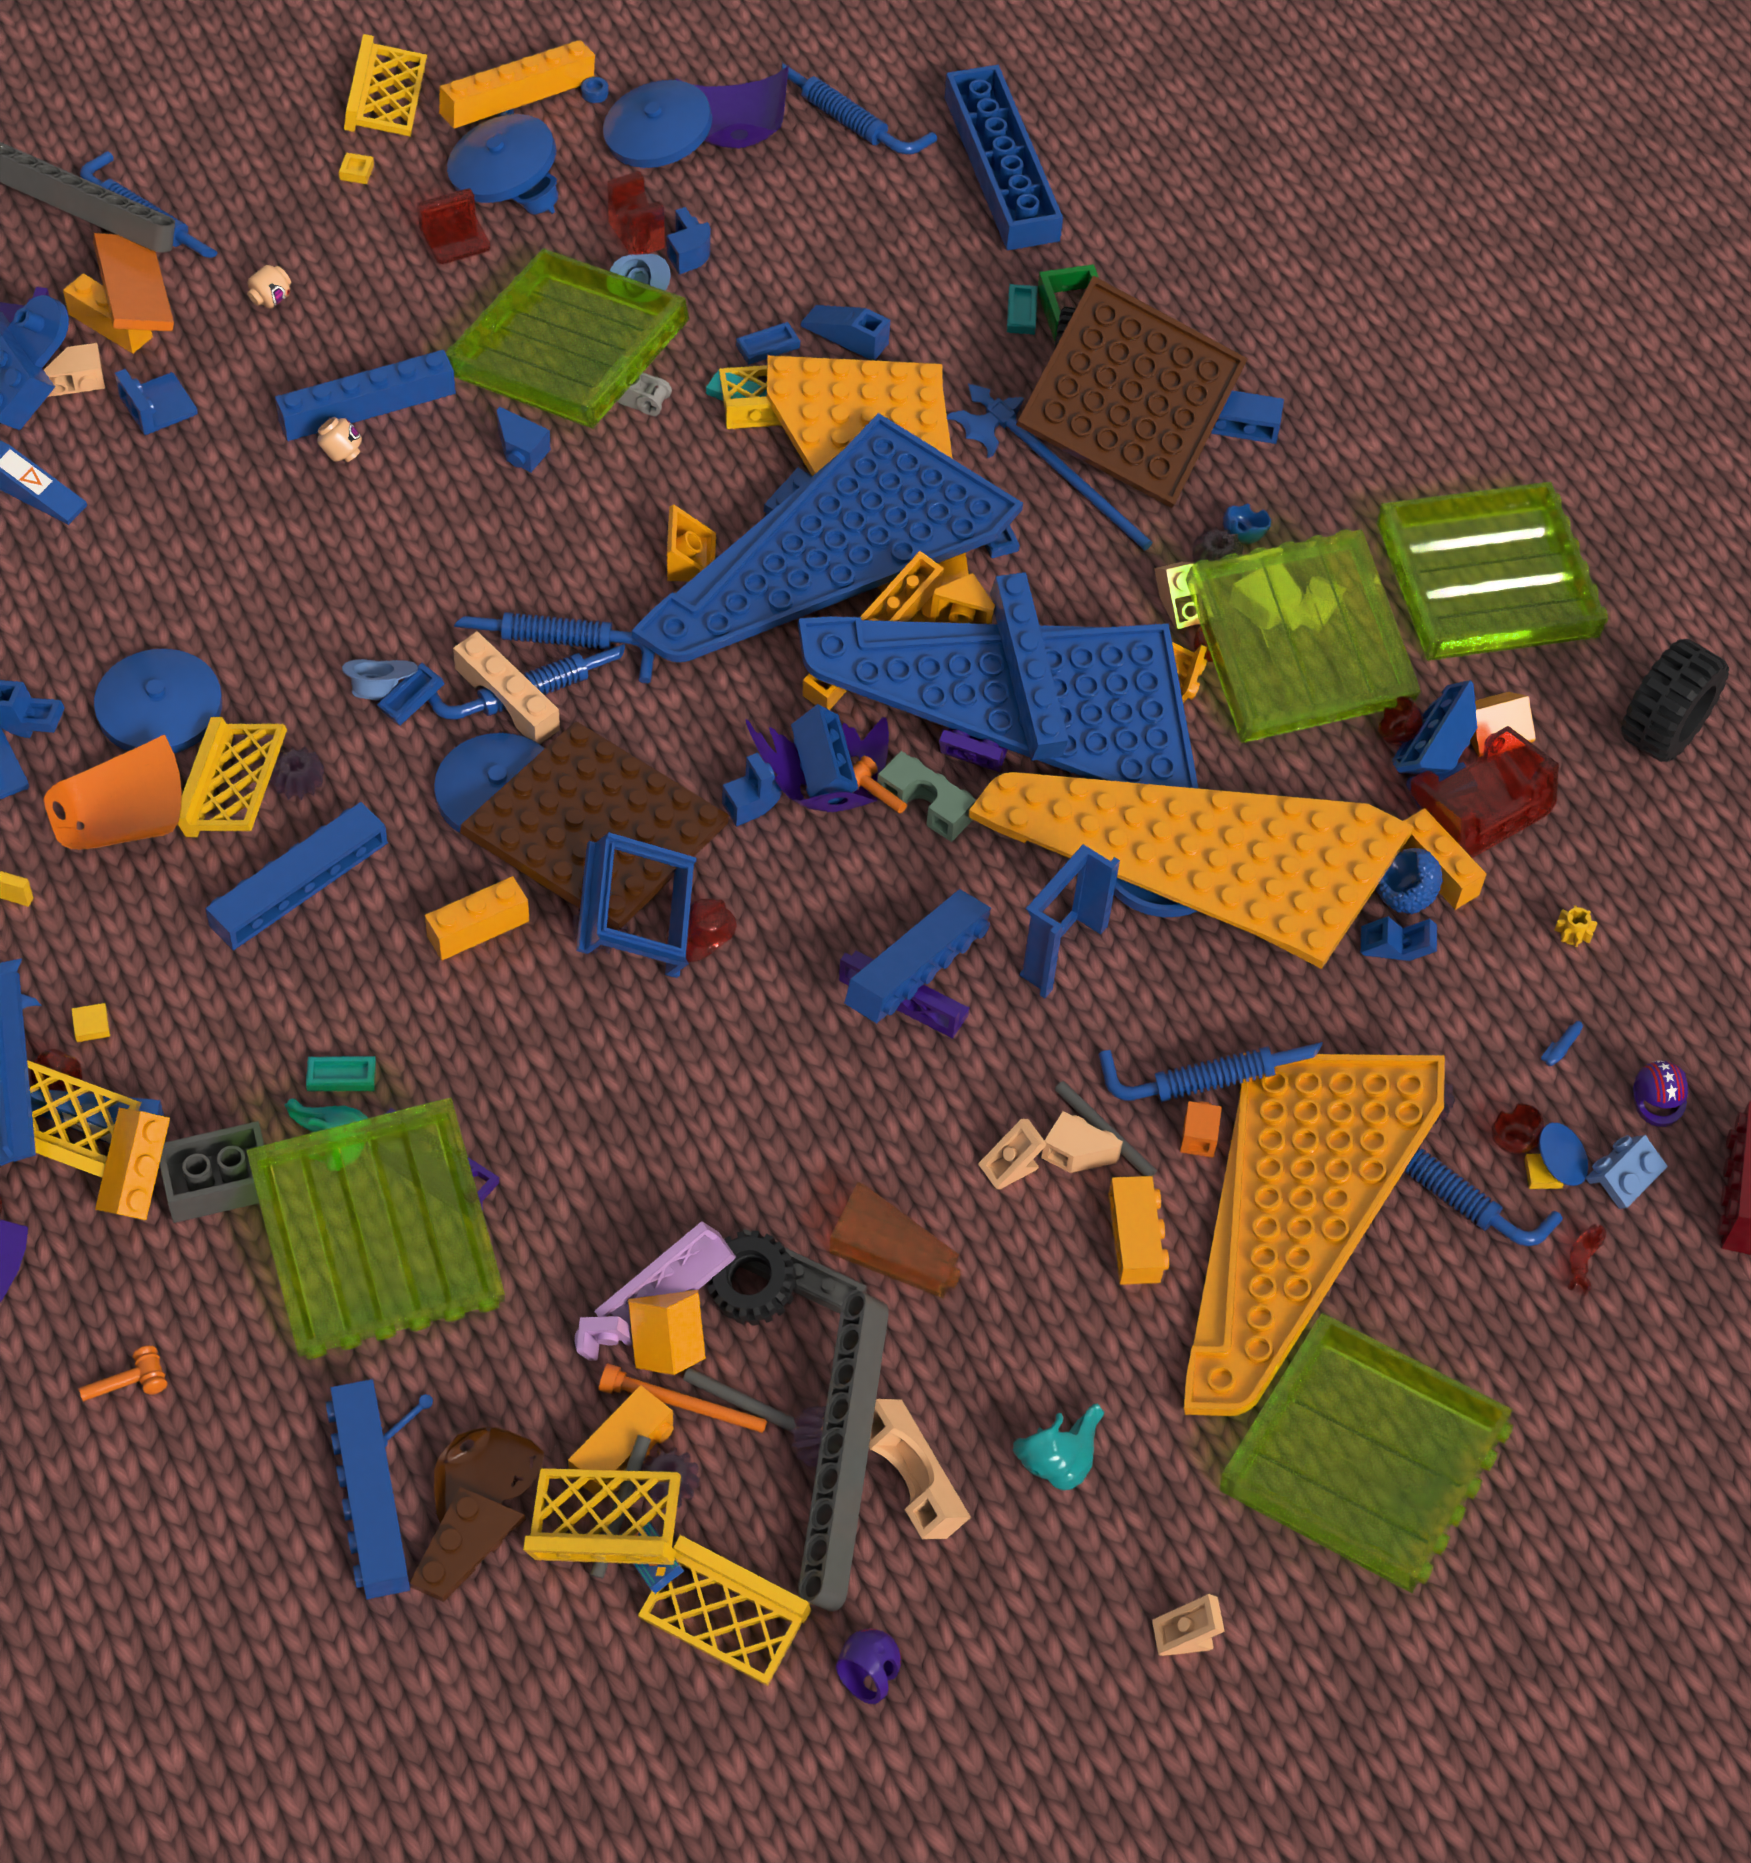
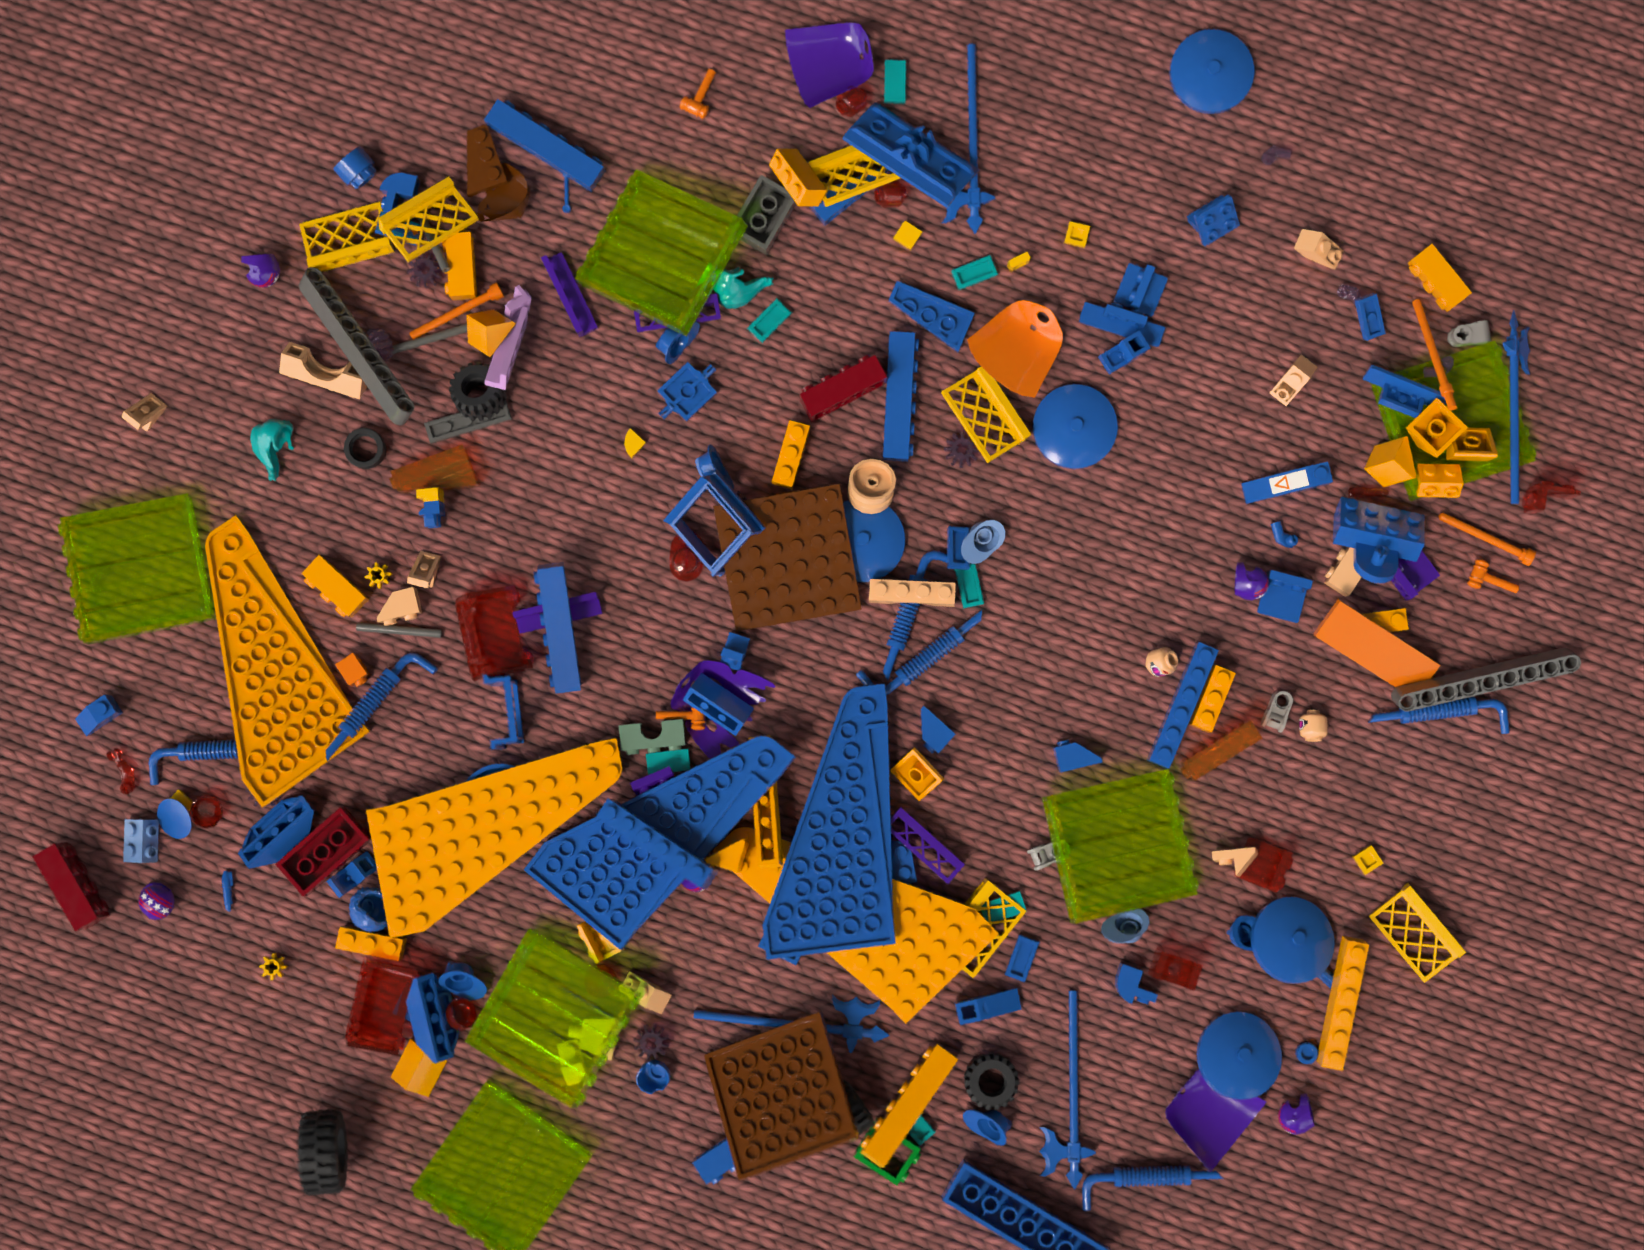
camera: 140 degrees right, 30 degrees up
(70, 925) = (974, 272): none -> teal tile
(92, 448) = (1283, 538): none -> blue arm
(162, 916) = (936, 315): none -> blue wing
(172, 424) = (1250, 584): none -> dark purple helmet
(281, 324) = (1277, 712): none -> light grey piece
(329, 368) = (1212, 698): none -> light orange brick
(346, 922) = (842, 388): none -> dark red brick
(372, 331) = (1220, 750): none -> clear orange slope
(429, 808) = (871, 486): none -> light nougat wheel
(441, 655) = (969, 587): none -> teal tile
(467, 243) = (1241, 857): none -> light nougat slope
(480, 1135) = (673, 343): none -> blue piece
(514, 1079) = (687, 391): none -> blue plate
(529, 1299) = (570, 294): none -> dark purple fence
(578, 979) = (710, 463): none -> blue piece
(602, 1609) = (398, 186): none -> blue brick
(625, 1676) = (356, 168): none -> blue piece
(631, 566) = (934, 732): none -> blue slope
(634, 1084) = (633, 443): none -> yellow tile
(661, 47) = (1296, 1120): none -> dark purple helmet
(743, 476) = (932, 841): none -> dark purple fence
(892, 179) = (1053, 1150): none -> blue piece
(910, 273) = (998, 1098): none -> black tyre
(937, 1201) = (433, 506): none -> blue hips
(939, 762) = (676, 759): none -> teal tile
(948, 245) = (989, 1124): none -> blue piece
(950, 1322) = (348, 448): none -> black tyre
(1007, 305) = (908, 1106): none -> light orange brick
(1007, 1028) = (492, 632): none -> clear red windscreen
(1073, 1197) = (372, 577): none -> yellow gear
(1368, 752) = (462, 982): none -> blue piece
(1411, 977) = (323, 851): none -> dark red brick
(1470, 1042) = (277, 832): none -> blue wedge
(1562, 1339) = (98, 714): none -> blue slope

